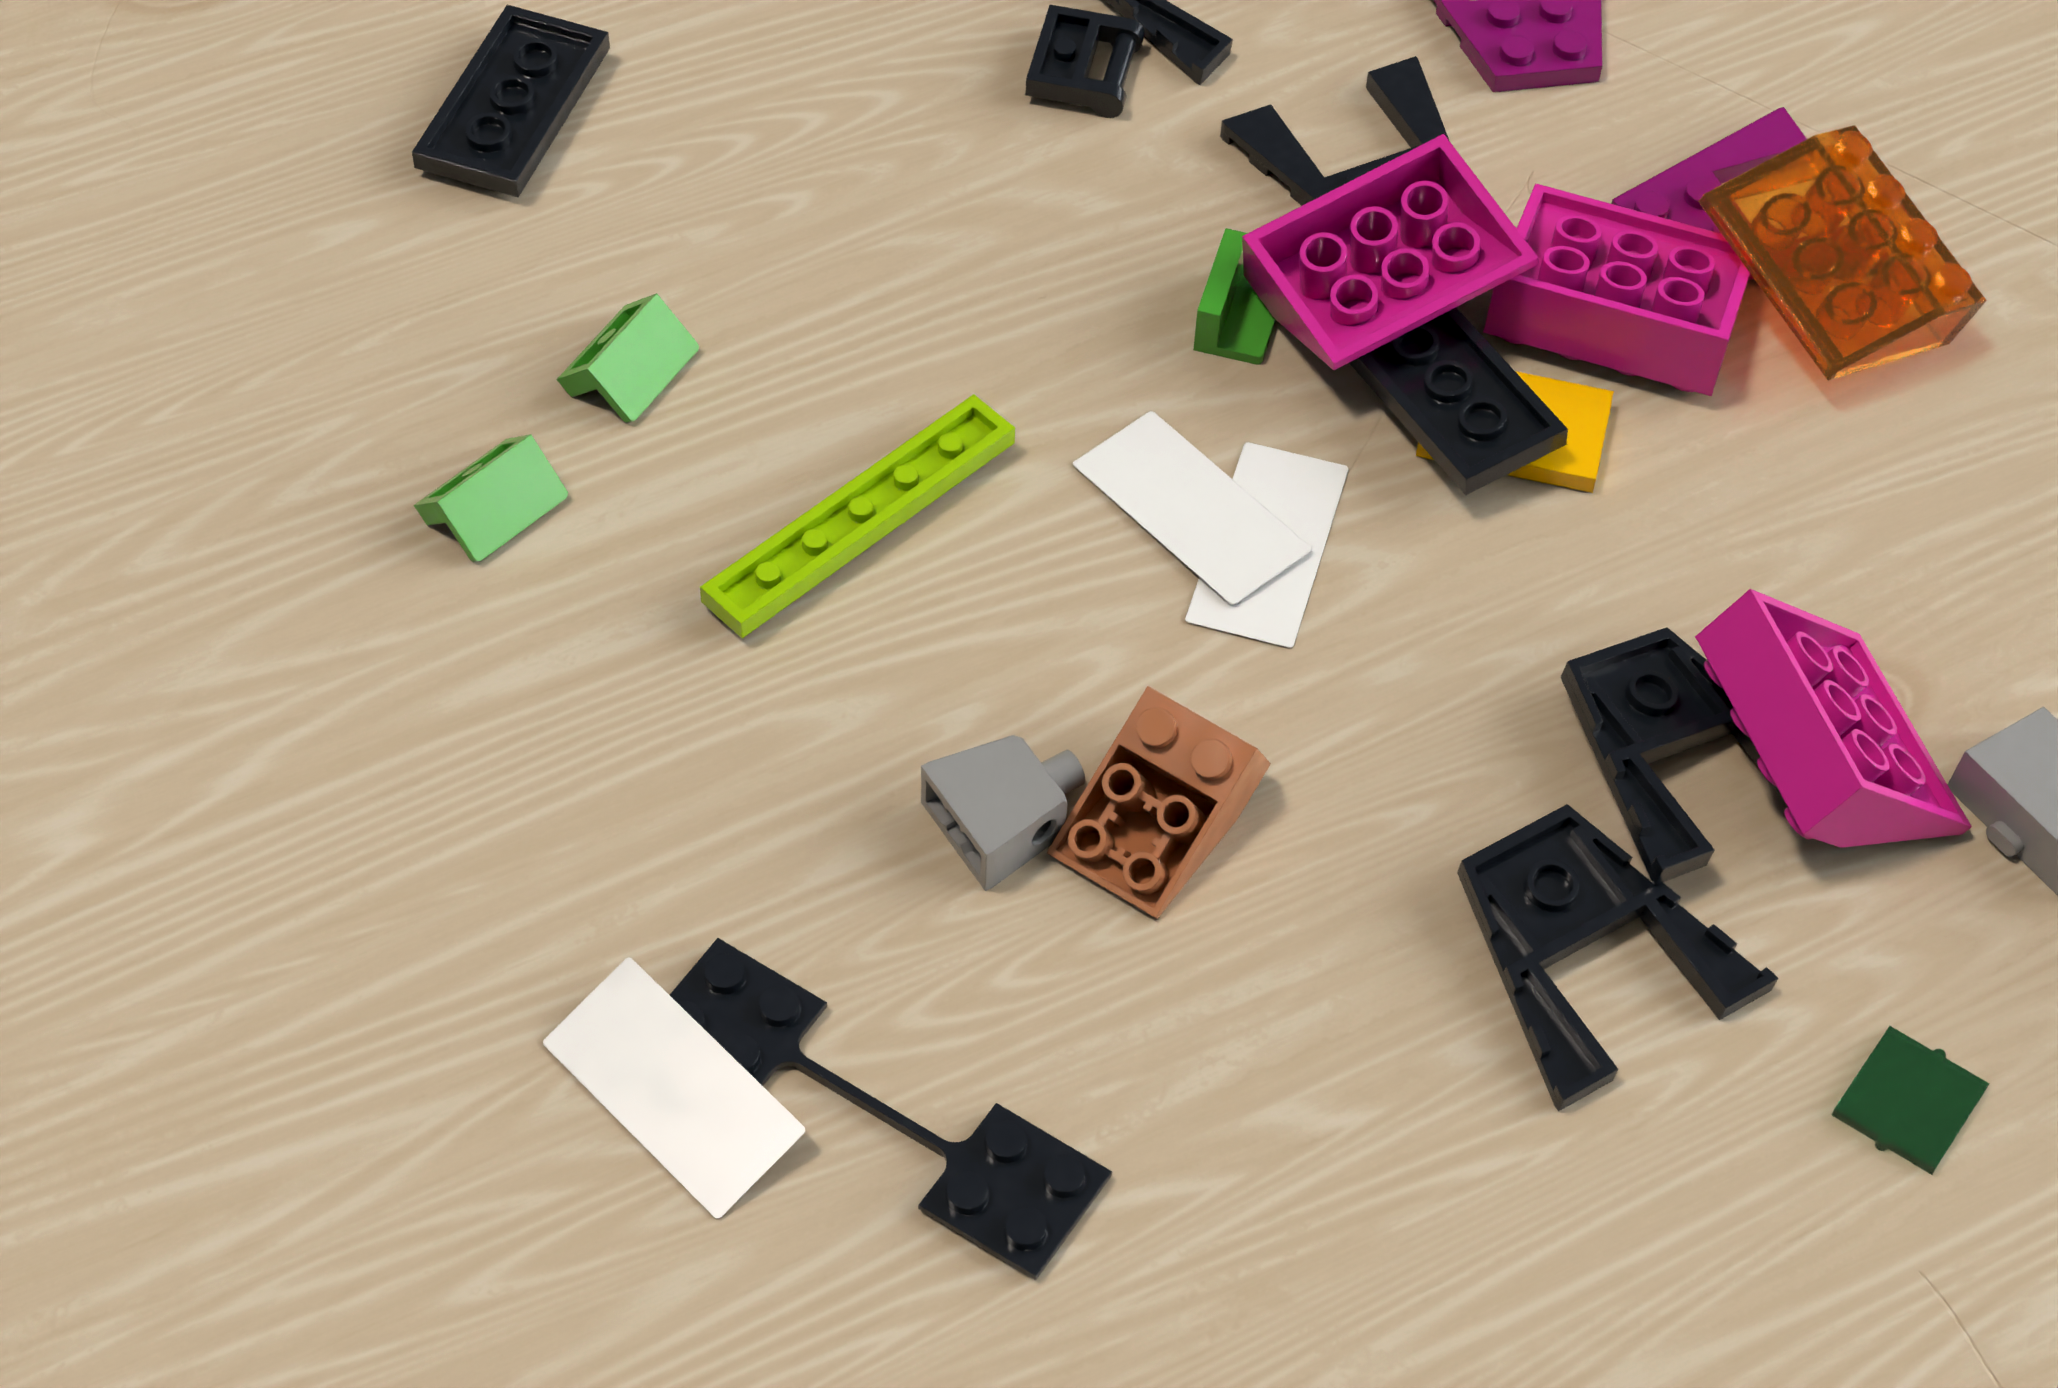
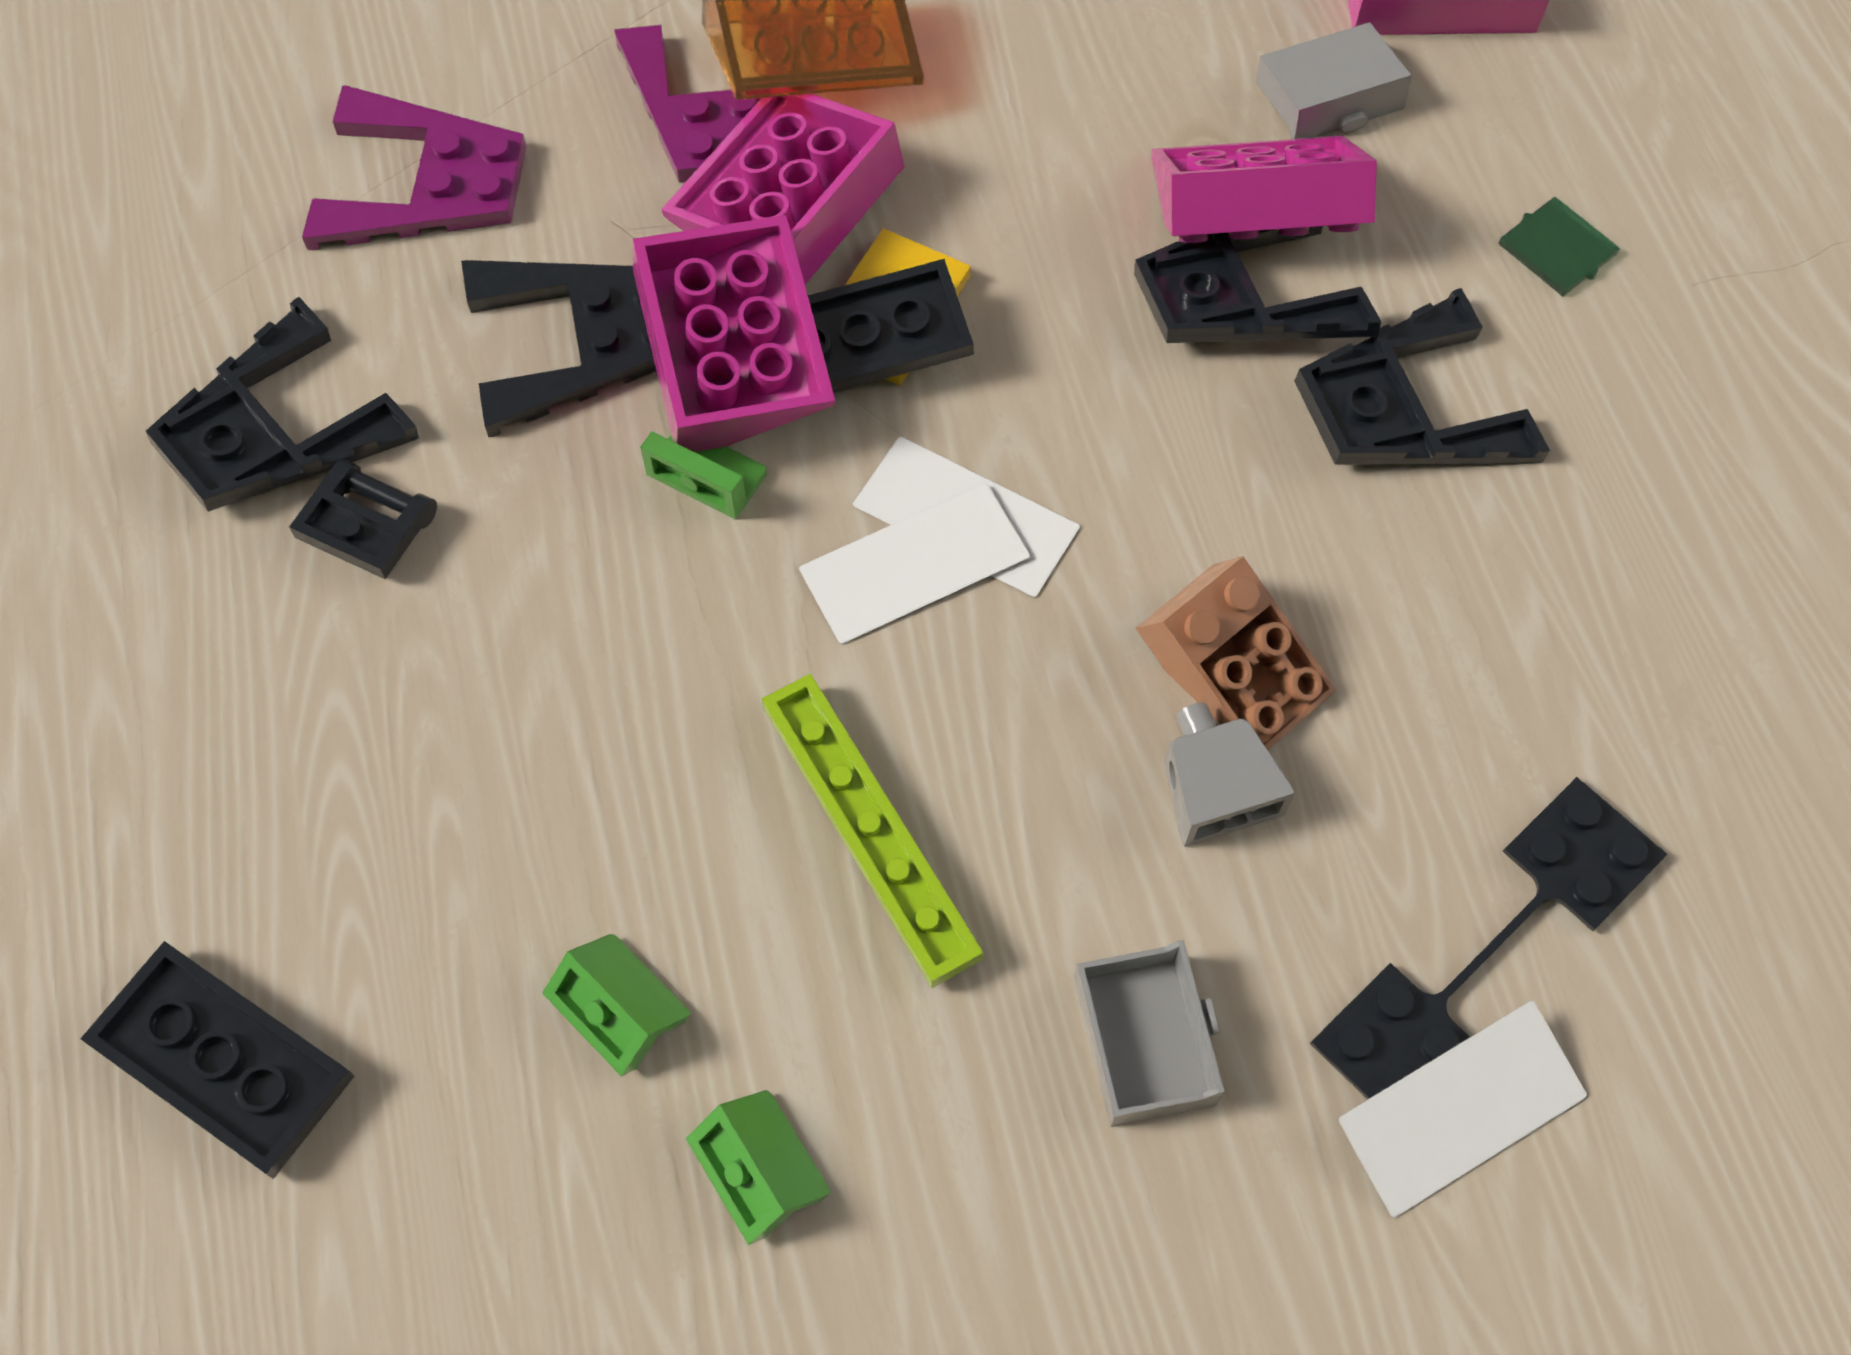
camera: 75 degrees left, 10 degrees up
(690, 784) = (1149, 1034): none -> light grey container

